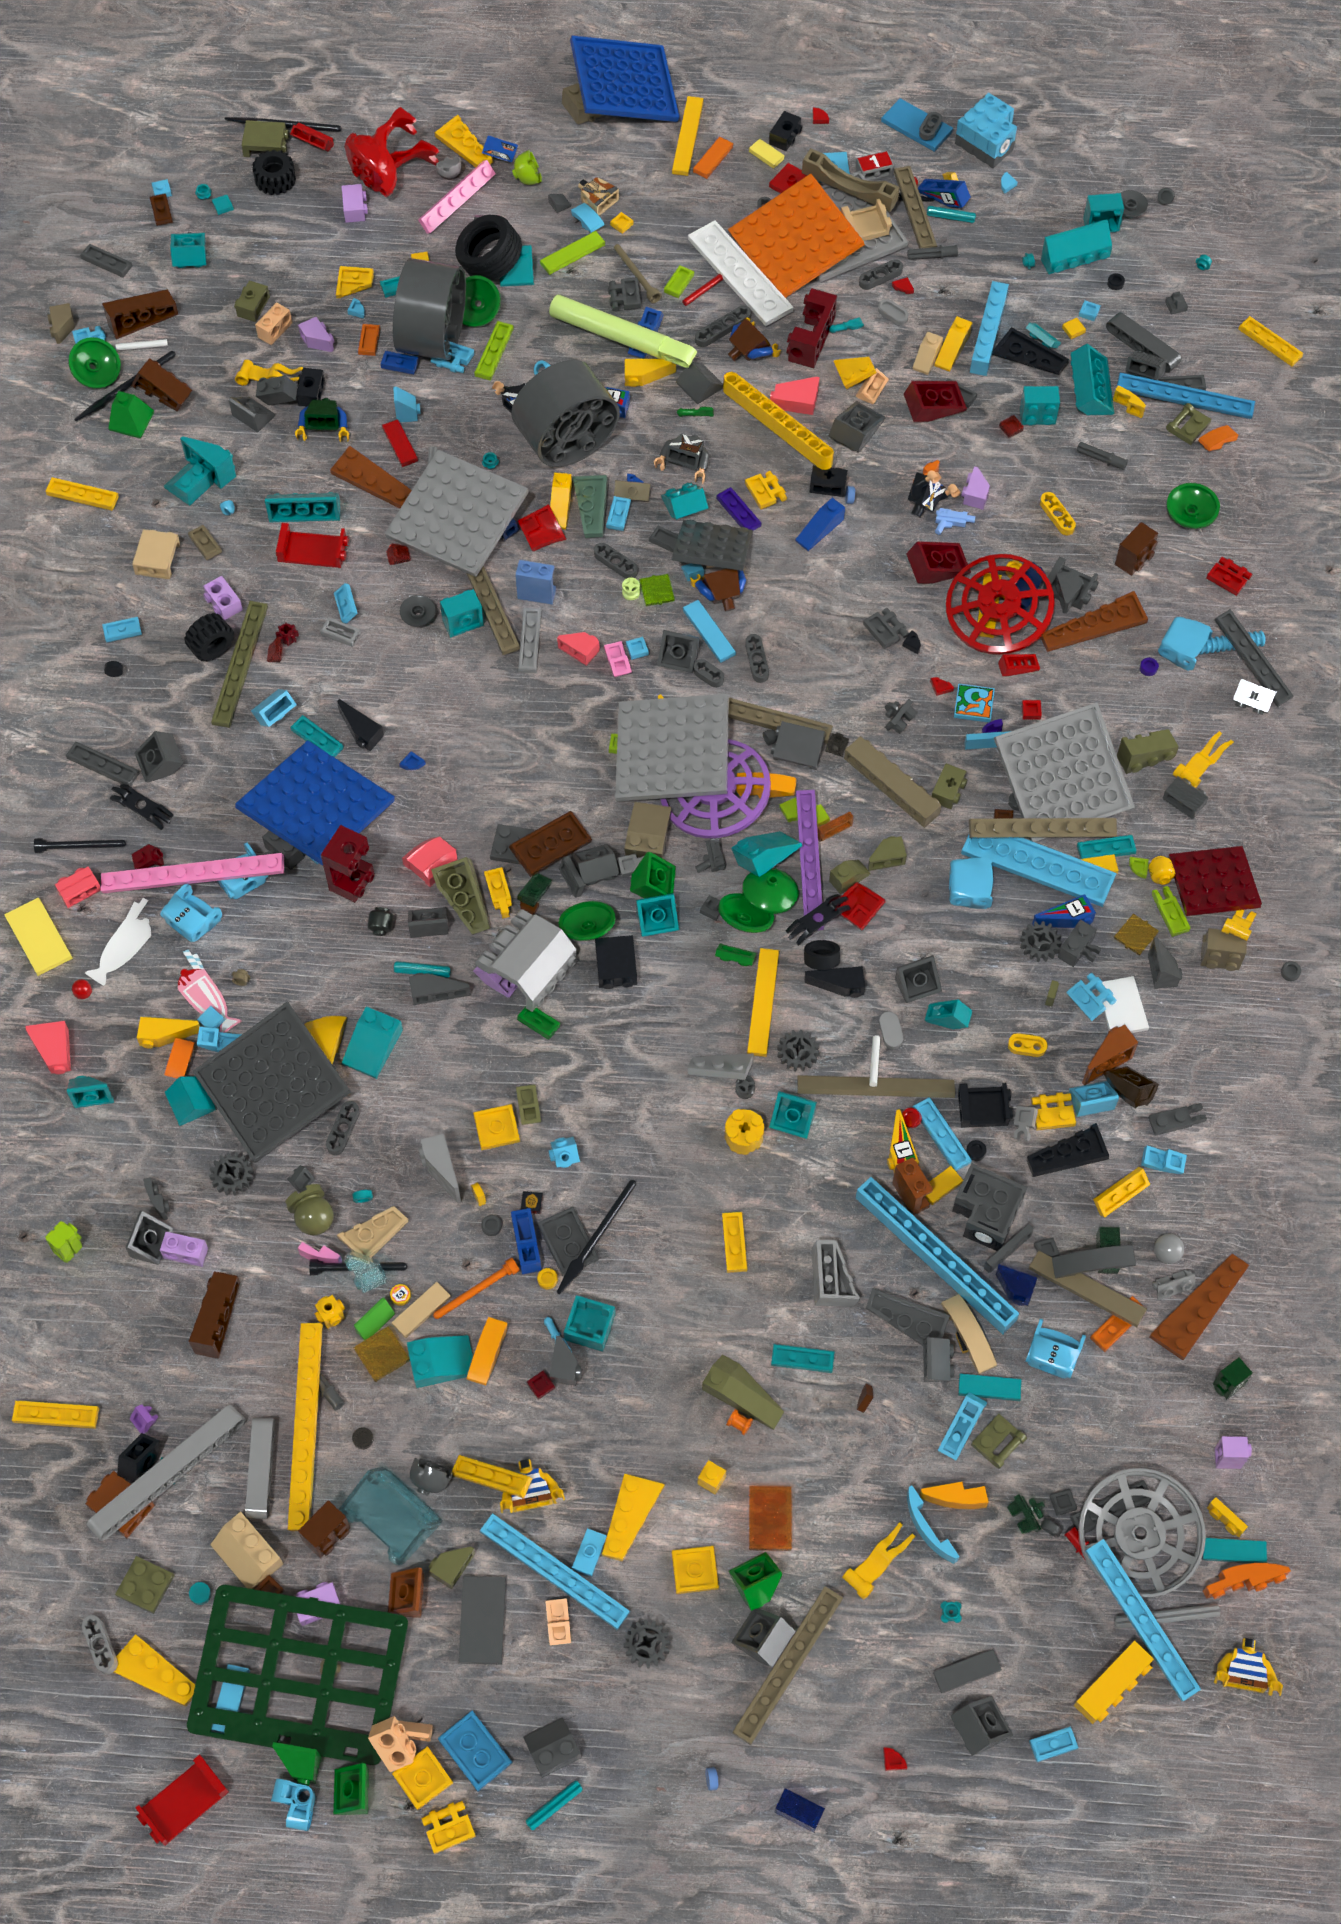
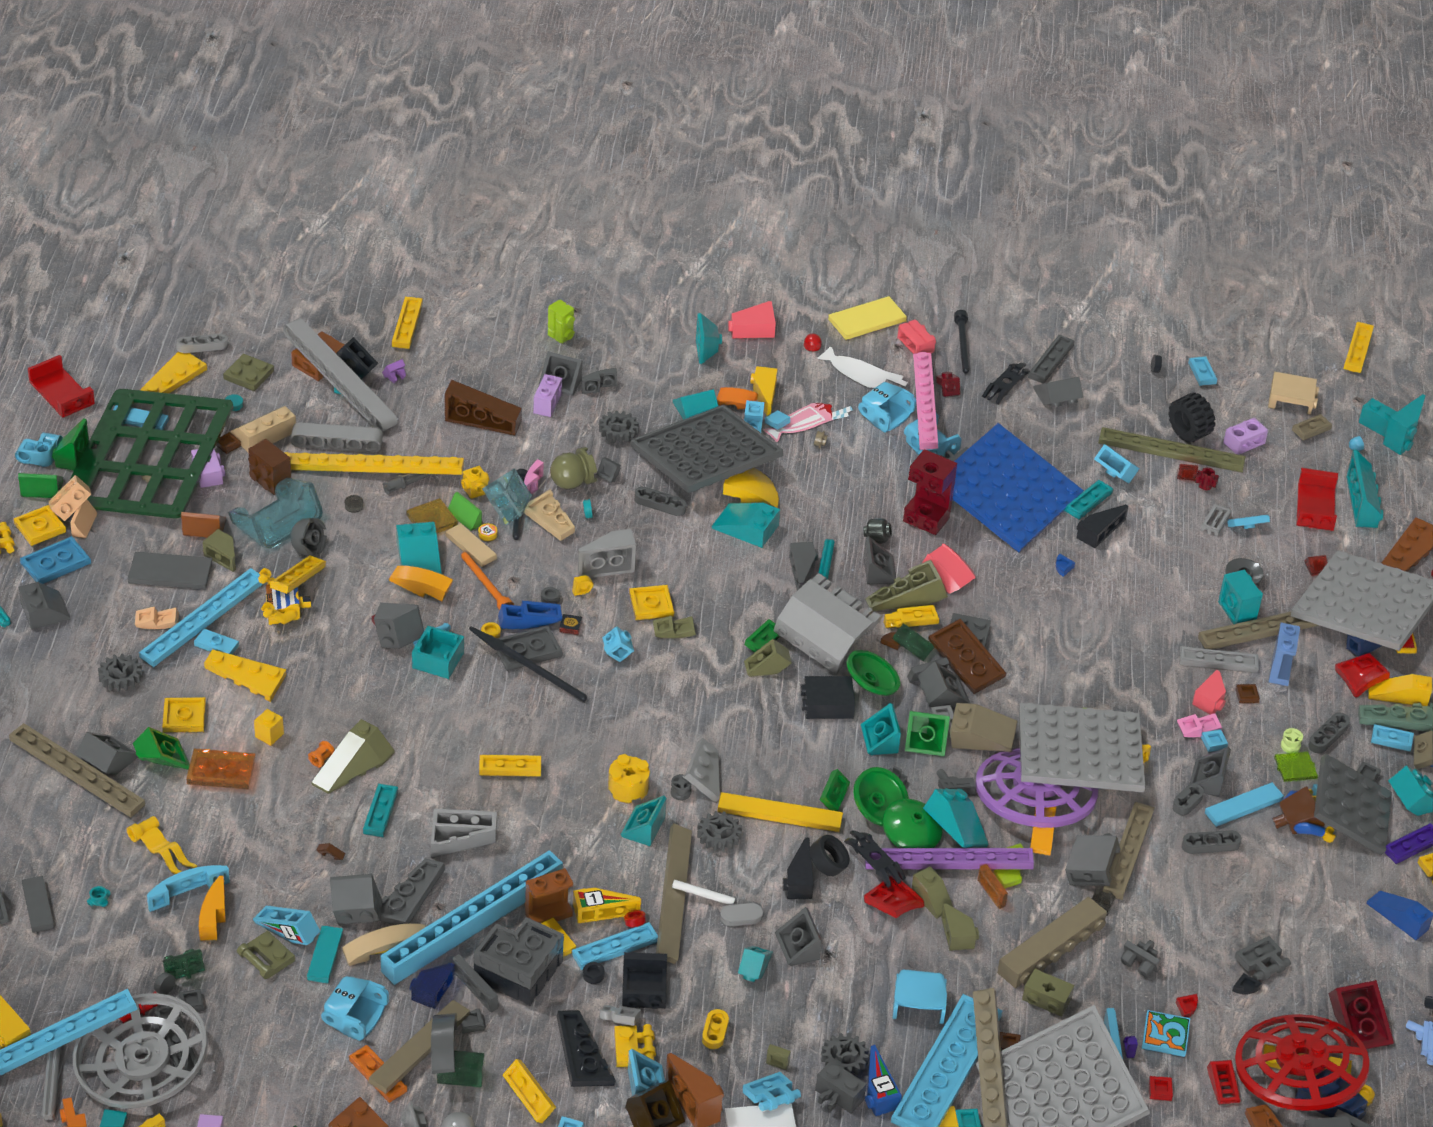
camera: 90 degrees right, 20 degrees down
(571, 620) = (1247, 693): none -> reddish brown tile
(572, 1016) = (768, 660): none -> olive slope

